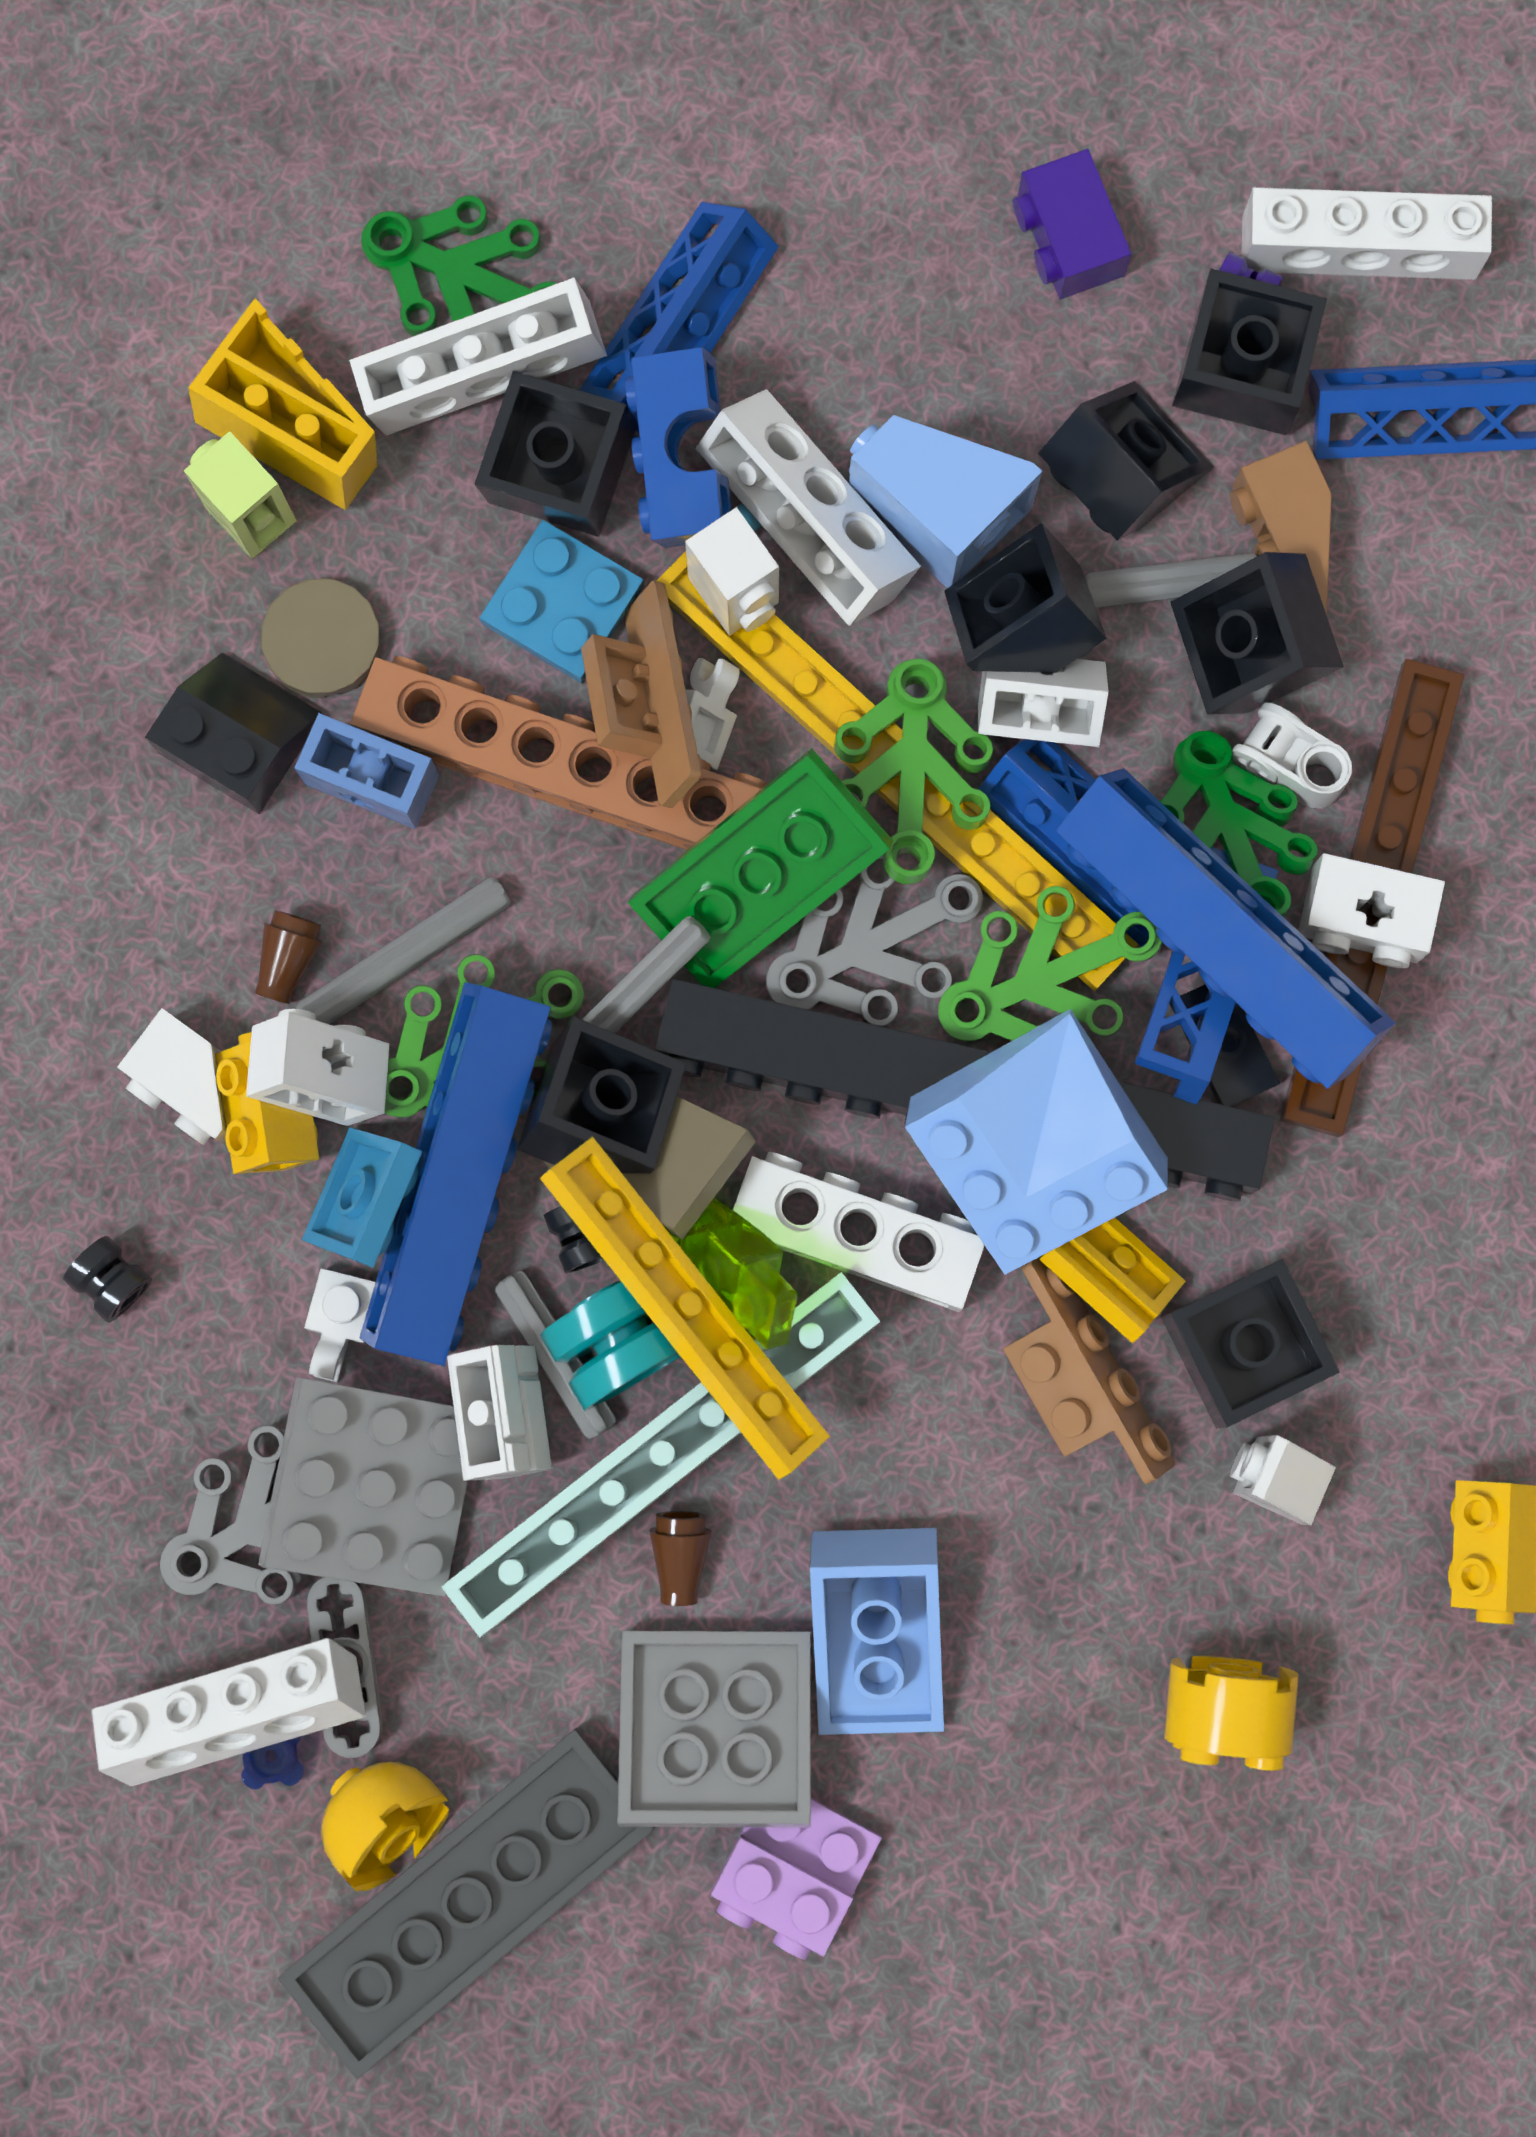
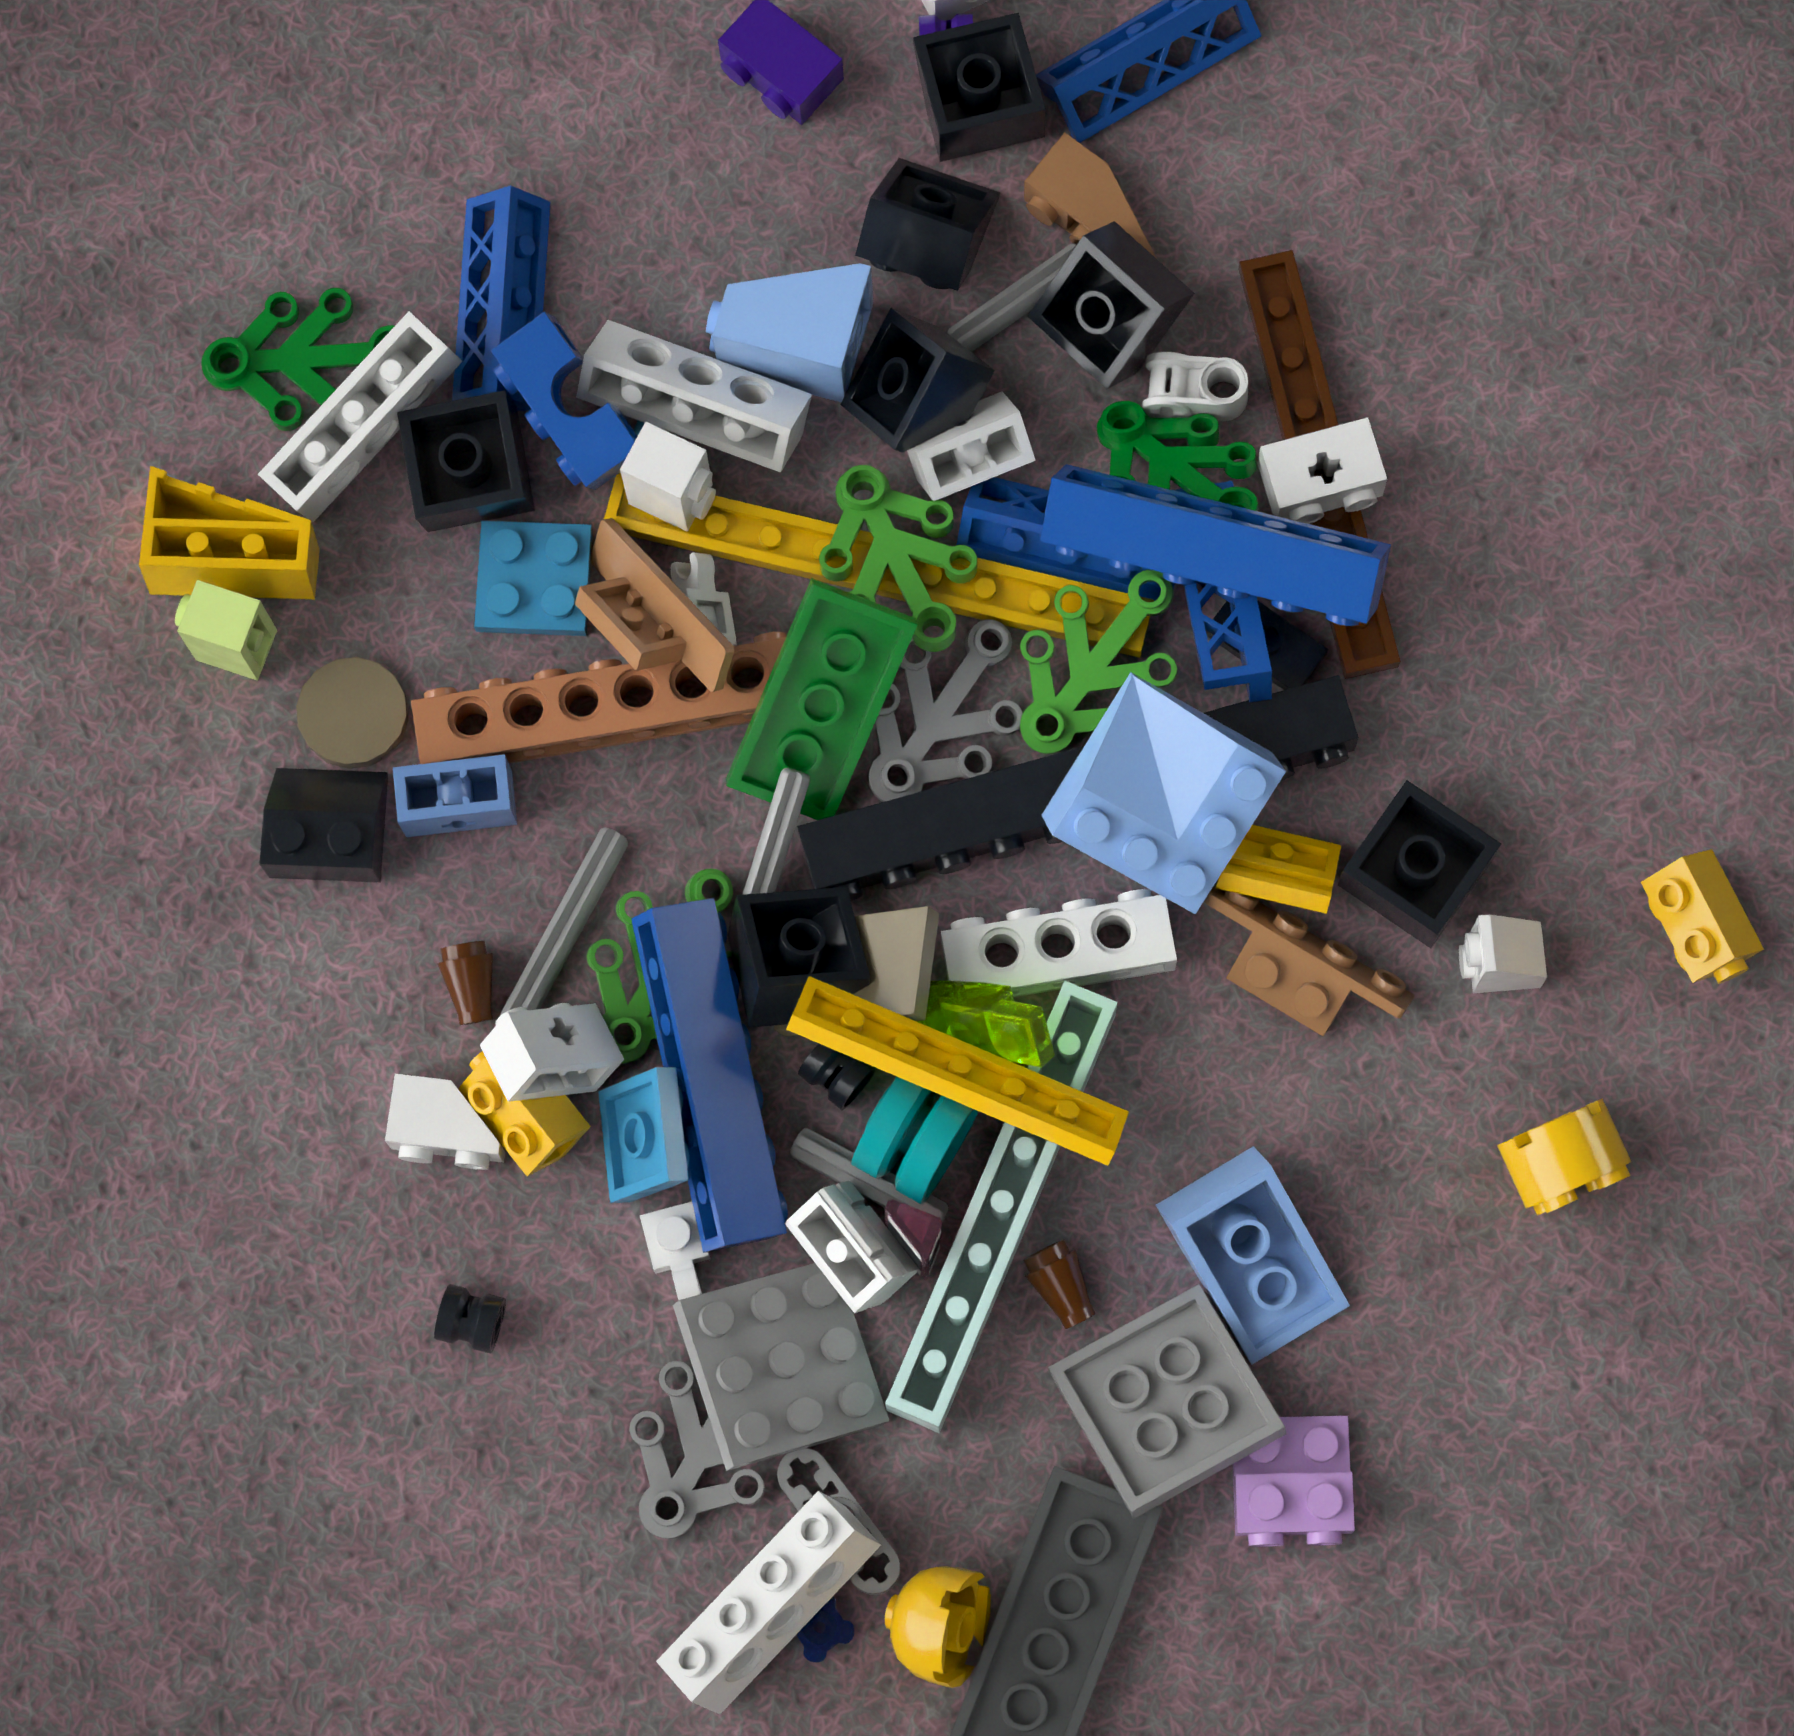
camera: 25 degrees left, 5 degrees down
(564, 1439) = (916, 1232): none -> clear pink slope

